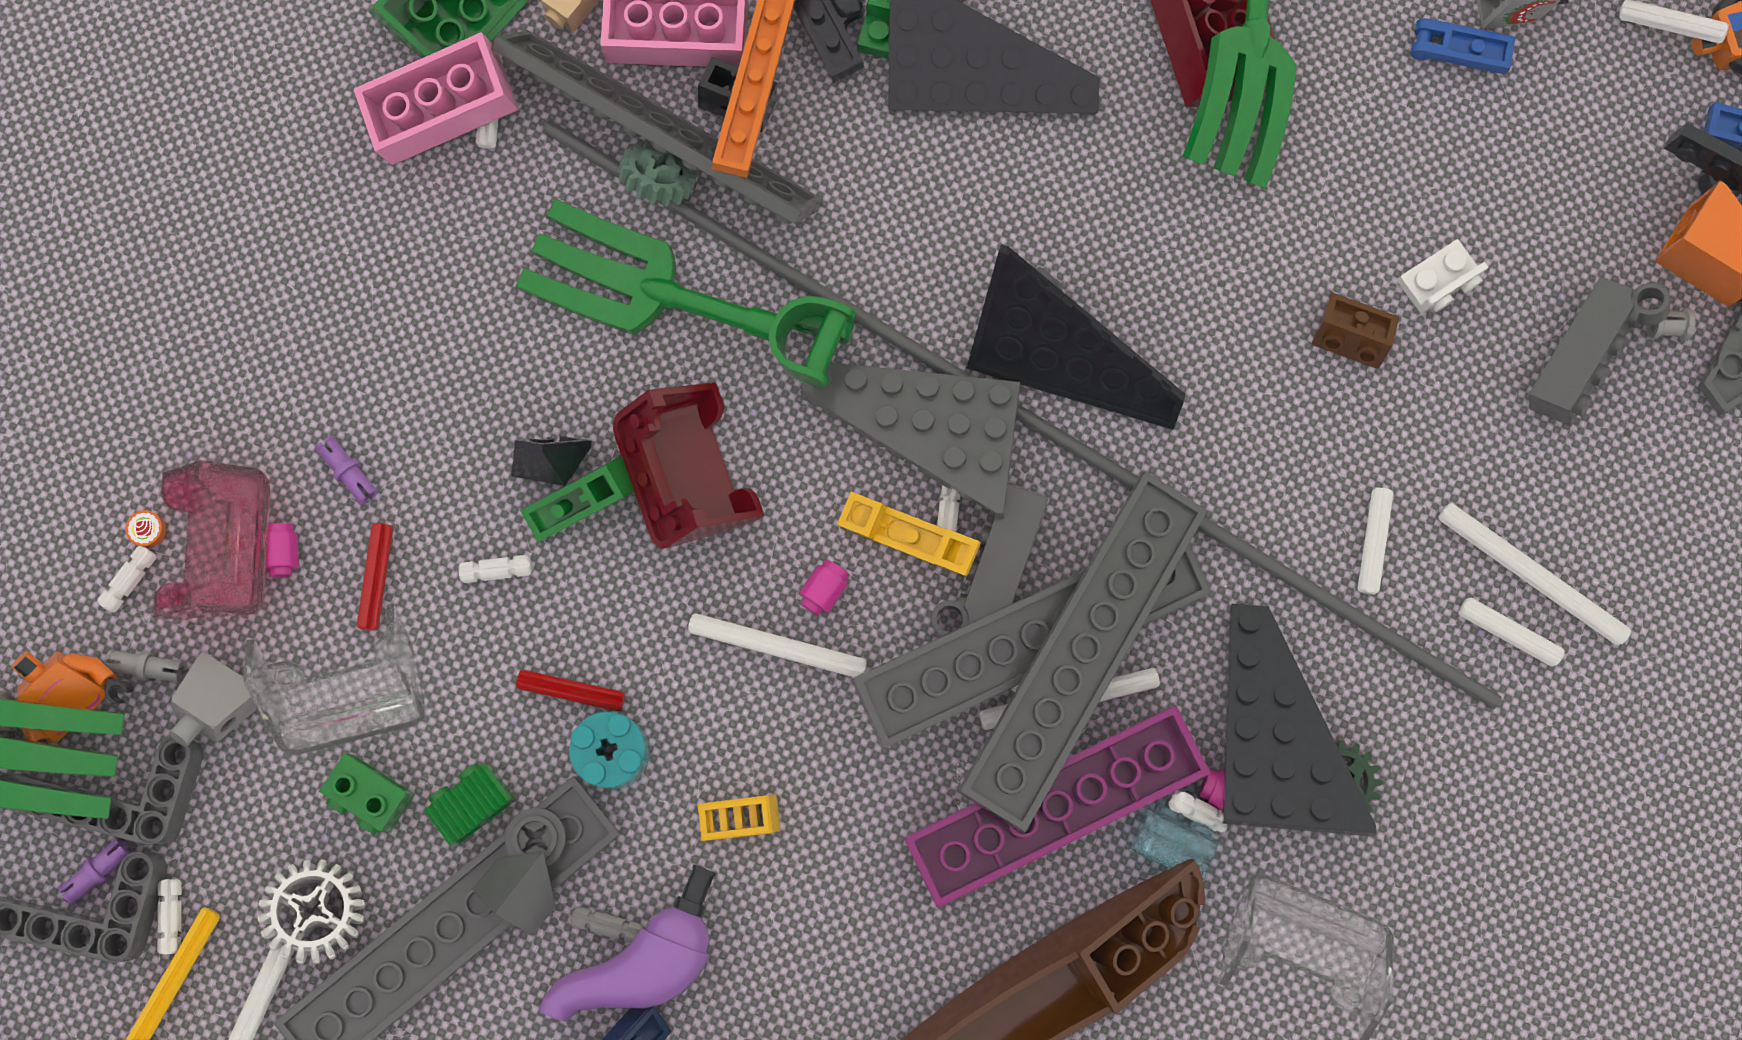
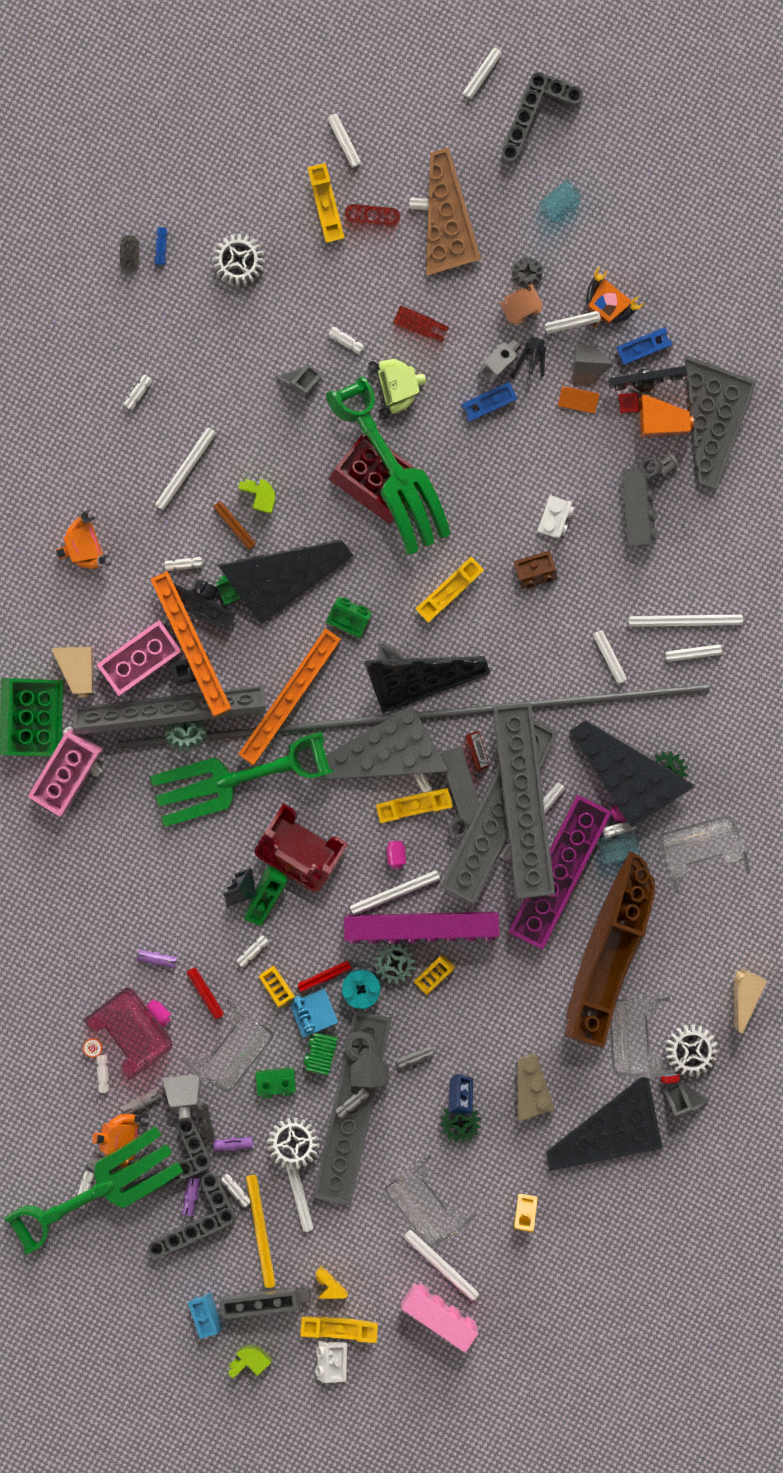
camera: 45 degrees left, 10 degrees up
(218, 761) = (204, 1114): none -> clear smoke plate
(225, 840) = (233, 1144): none -> medium lavender pin
(453, 919) = (352, 1102): none -> light grey axle
(492, 682) = (273, 970): none -> yellow slope
(508, 731) = (313, 1012): none -> dark azure hinge
(651, 968) = (447, 1060): medium lavender animal -> none
(675, 748) = (402, 958): none -> sand green gear
(775, 722) = (421, 926): none -> magenta brick
(846, 238) = (289, 697): none -> orange plate
(1023, 192) = (349, 617): none -> green bracket
(1066, 528) = (477, 750): none -> slope
(1206, 264) = (449, 589): none -> yellow slope
(1586, 22) = (535, 347): none -> black plant
(1600, 136) = (578, 399): none -> orange slope
(1651, 101) = (589, 364): none -> dark grey slope
(1672, 197) = (628, 403): none -> red tile

